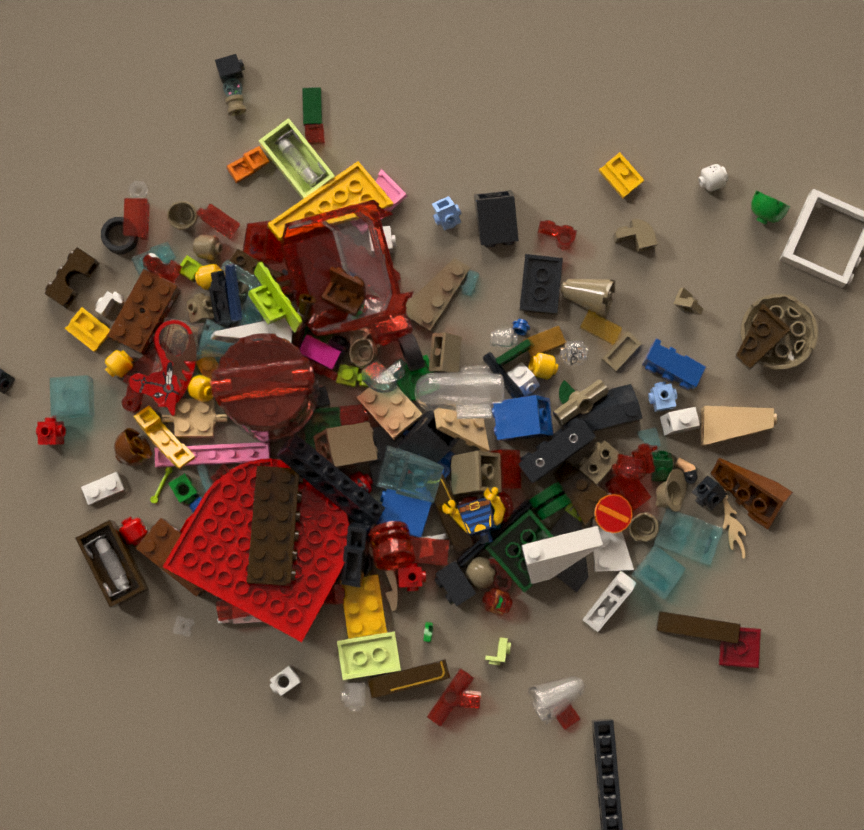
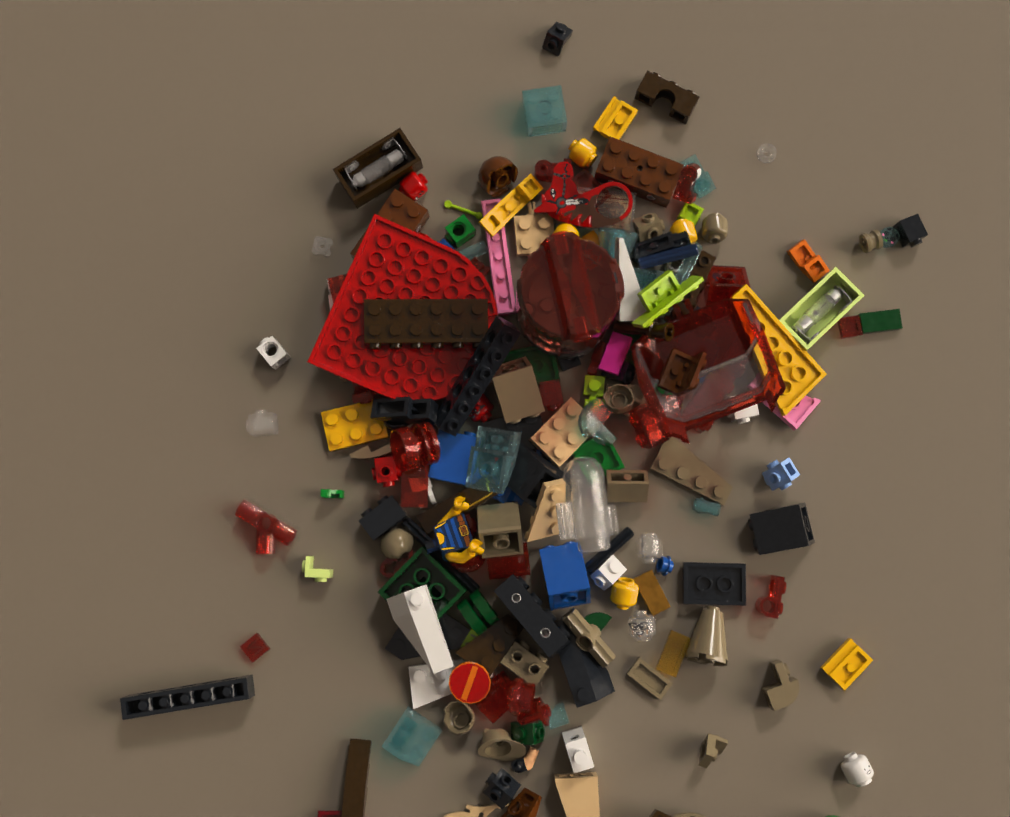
camera: 85 degrees right, 0 degrees up
(50, 432) = (506, 94): red brick -> none
(103, 488) = (455, 153): white plate -> none
(106, 303) = (644, 134): white bracket -> none
(107, 226) = (723, 126): black tyre -> none
(136, 217) = (737, 153): clear red panel -> none
(182, 215) = (745, 199): dark tan hair -> none
(218, 220) = (744, 237): clear red bracket -> none
(368, 655) = (304, 434): yellowish green plate -> none
(408, 678) = (282, 478): dark brown slope -> none
(411, 352) = (624, 449): black tyre -> none
(497, 601) = (368, 564): clear red head -> none
(515, 352) = (636, 561): dark green tile -> none
(555, 696) = (272, 635): clear cone -> none
(609, 601) = (378, 685): white slope -> none
(658, 401) = (603, 736): light blue brick -> none
(673, 366) = (638, 738): blue wedge -> none
(689, 537) = (452, 768): clear light blue slope -> none

